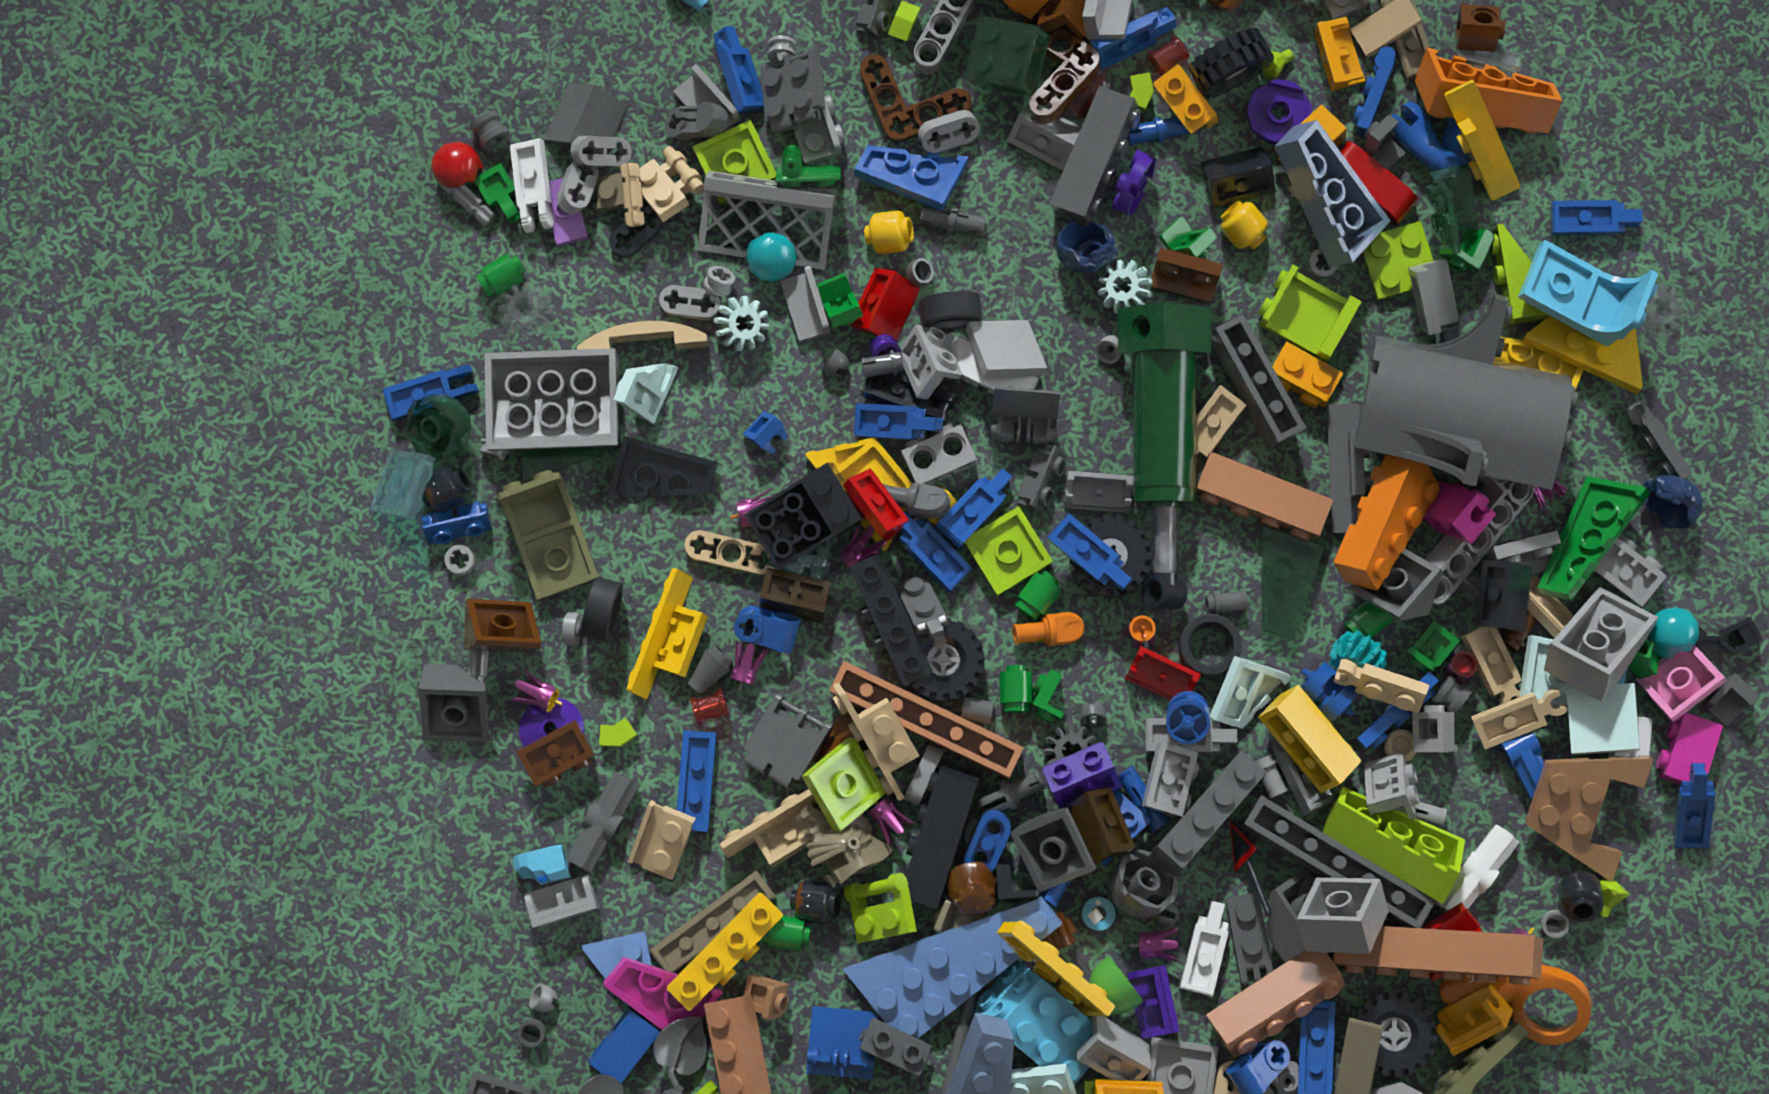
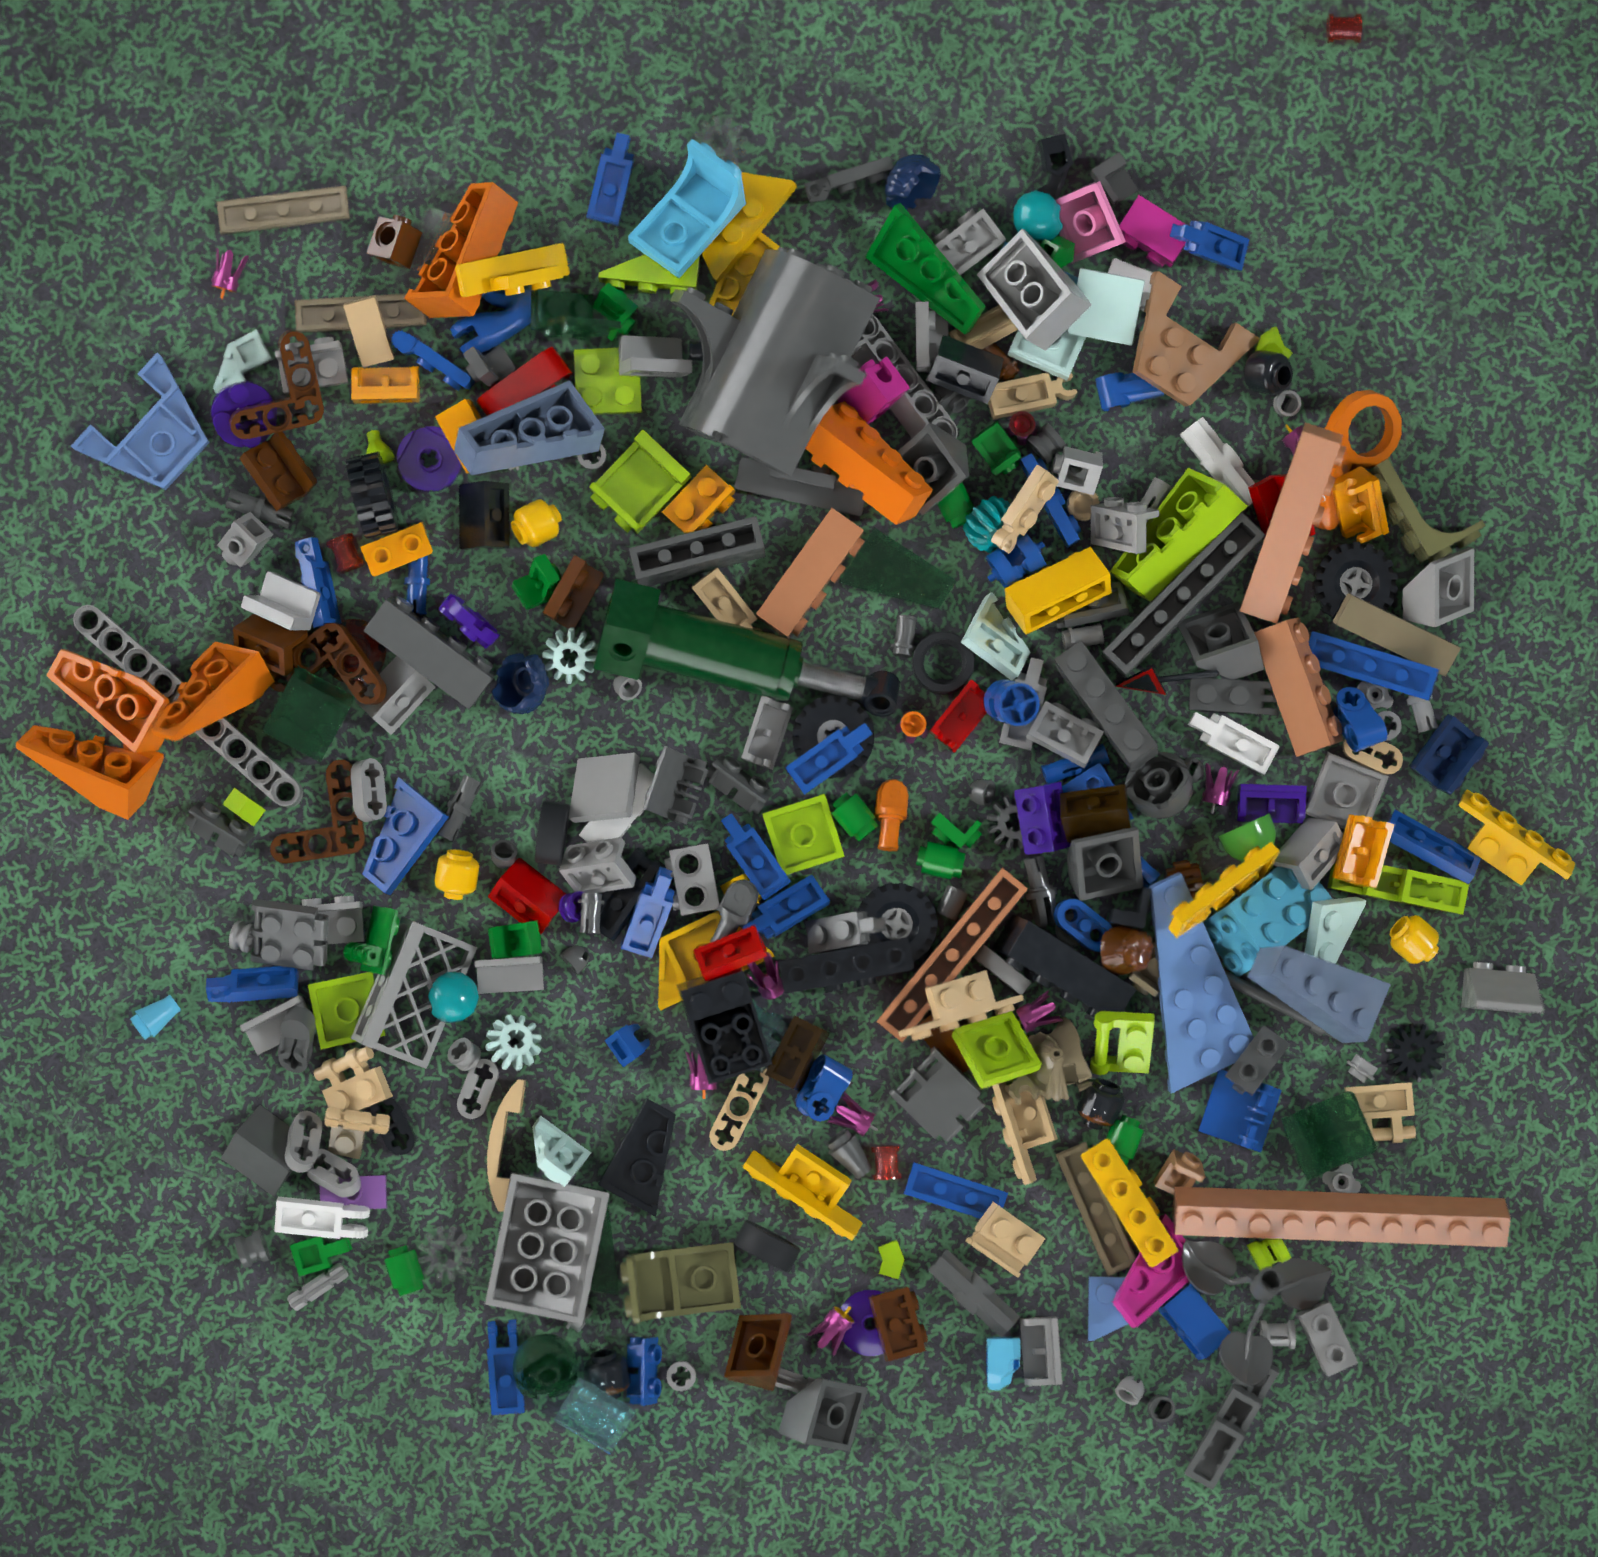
camera: 75 degrees left, 5 degrees up
(455, 164) = (281, 1290): red hair -> none
(572, 629) = (777, 1280): light grey tile -> none
(1098, 913) = (1174, 834): medium azure tile -> none
(1141, 89) = (374, 589): lime piece -> none
(1342, 915) = (1236, 604): light grey brick -> none
(1516, 717) = (1084, 388): tan plate -> none

